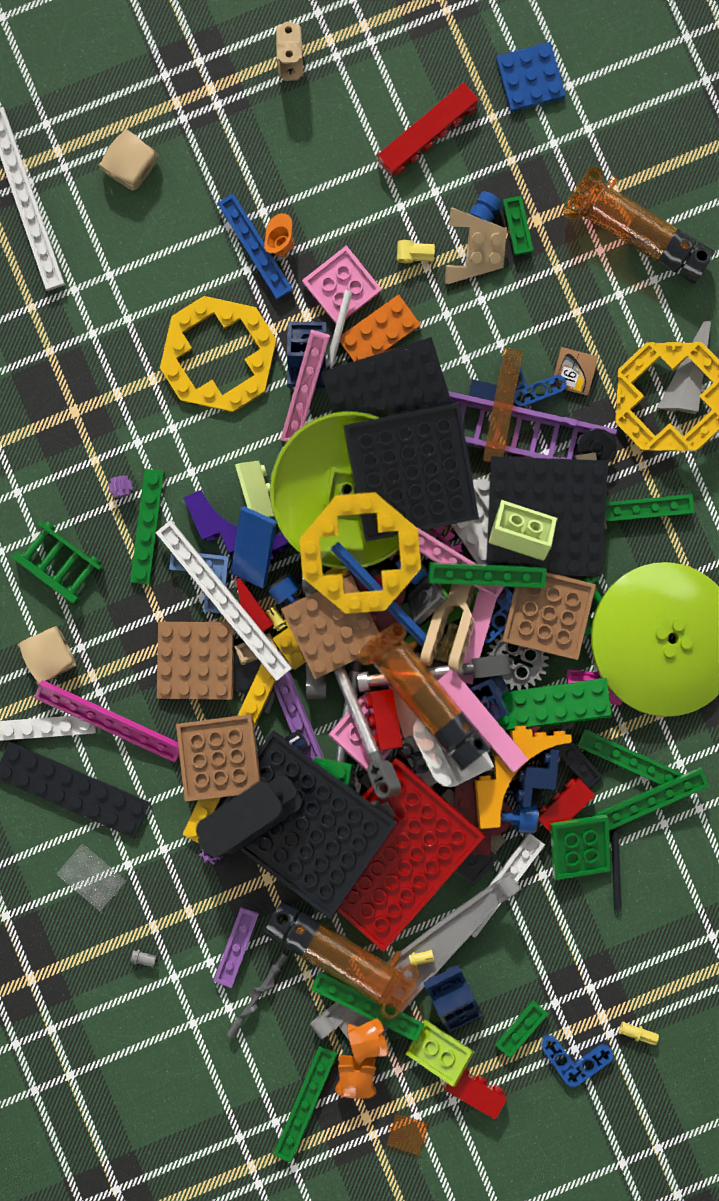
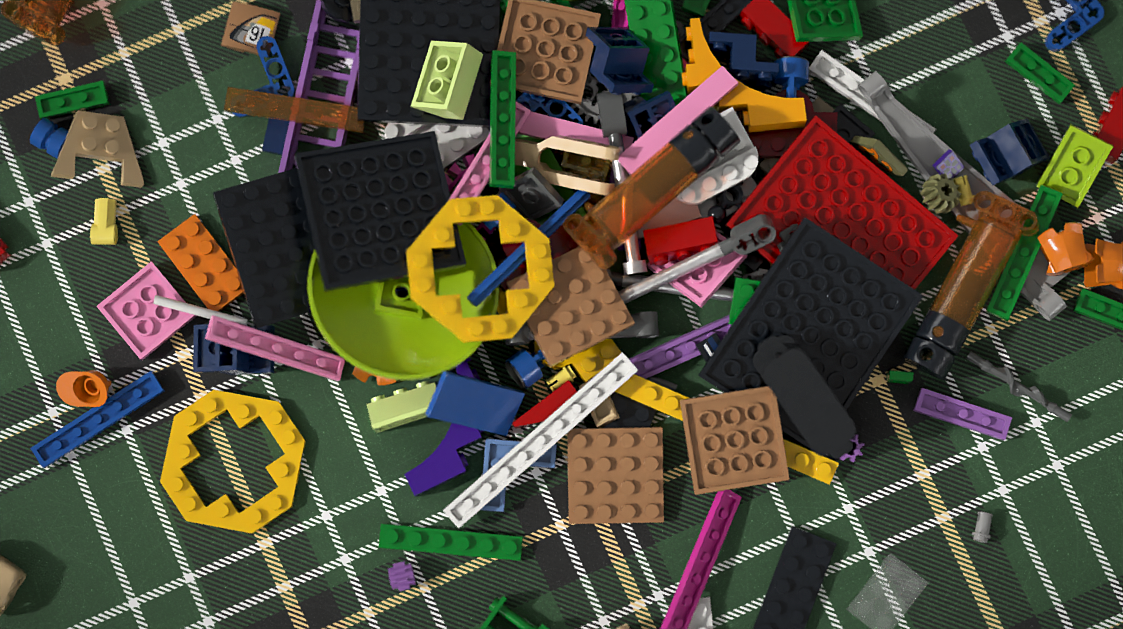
camera: 90 degrees left, 5 degrees down
(268, 896) = (899, 377): none -> green tile
(418, 938) = (940, 193): none -> olive gear
(442, 946) = (949, 164): none -> tile
(451, 888) = (879, 155): none -> olive tile
(536, 674) = (619, 60): none -> dark blue bracket

